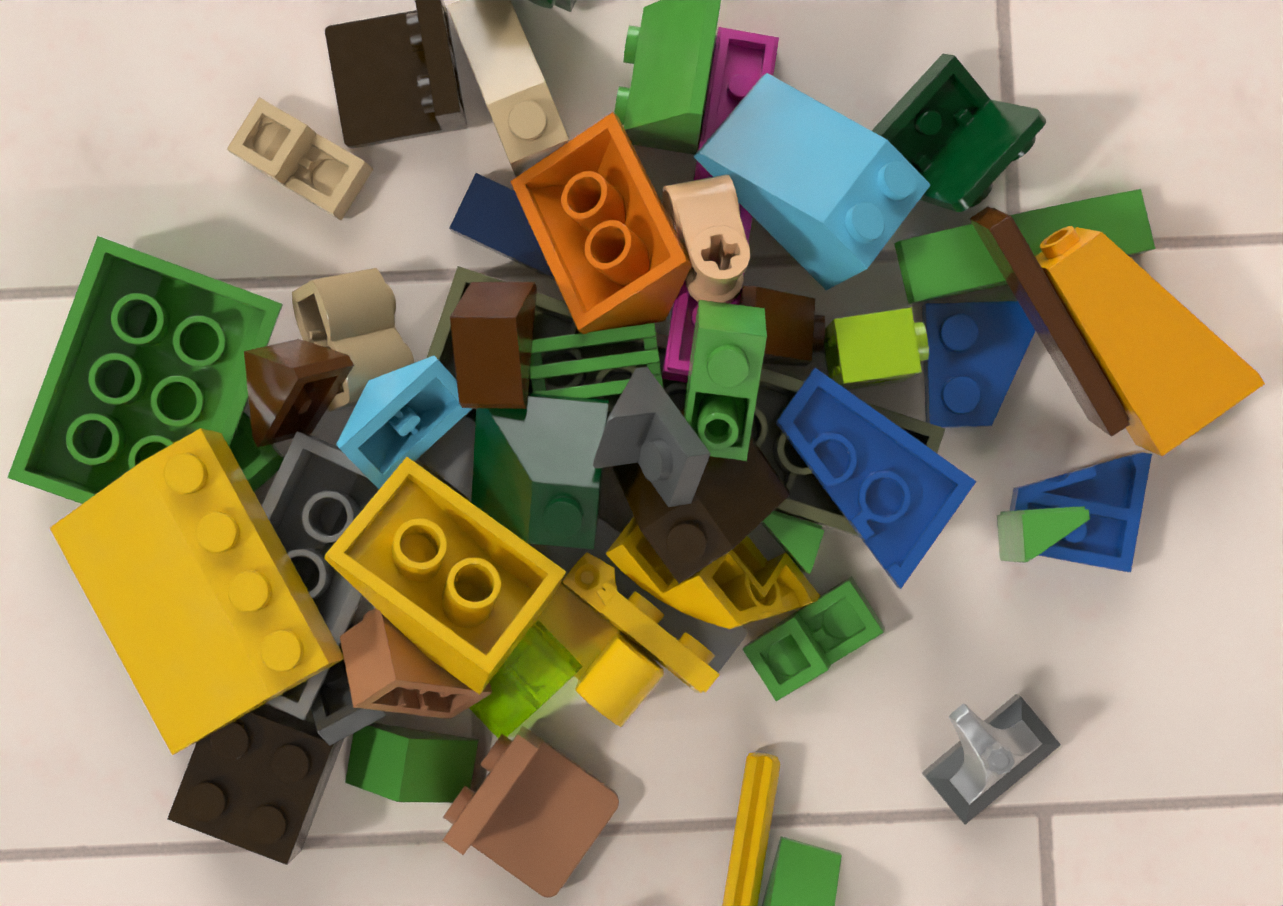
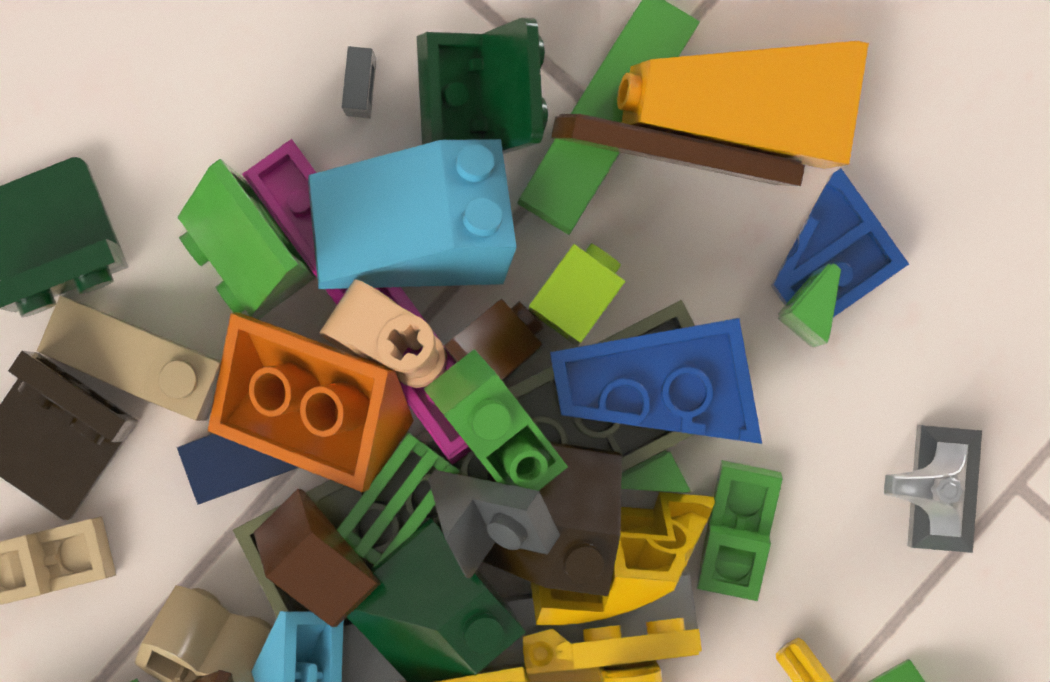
camera: 45 degrees left, 0 degrees up
(868, 45) = (359, 82): none -> dark grey tile
(972, 359) = (651, 227): blue wing -> none

